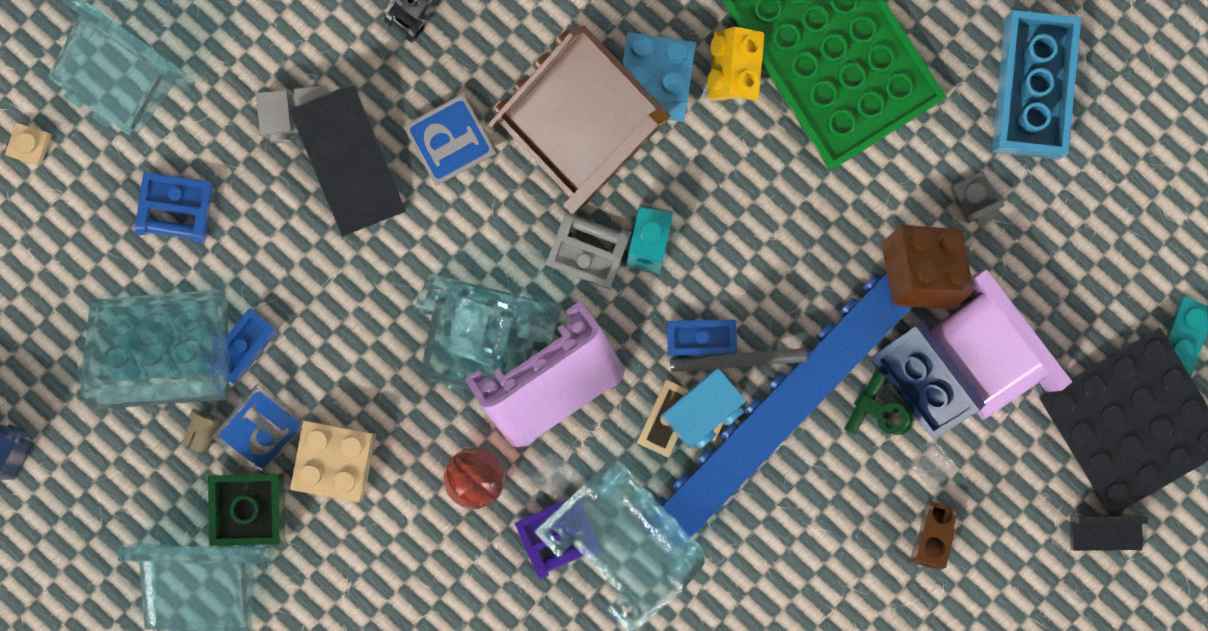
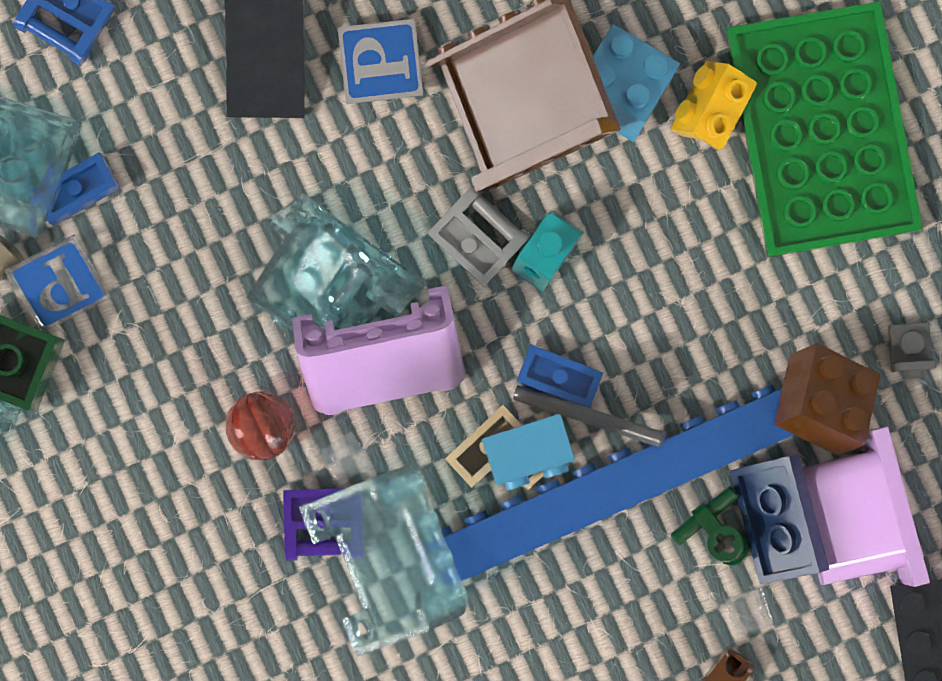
camera: 30 degrees right, 0 degrees up
(333, 461) = (120, 348): tan brick -> none

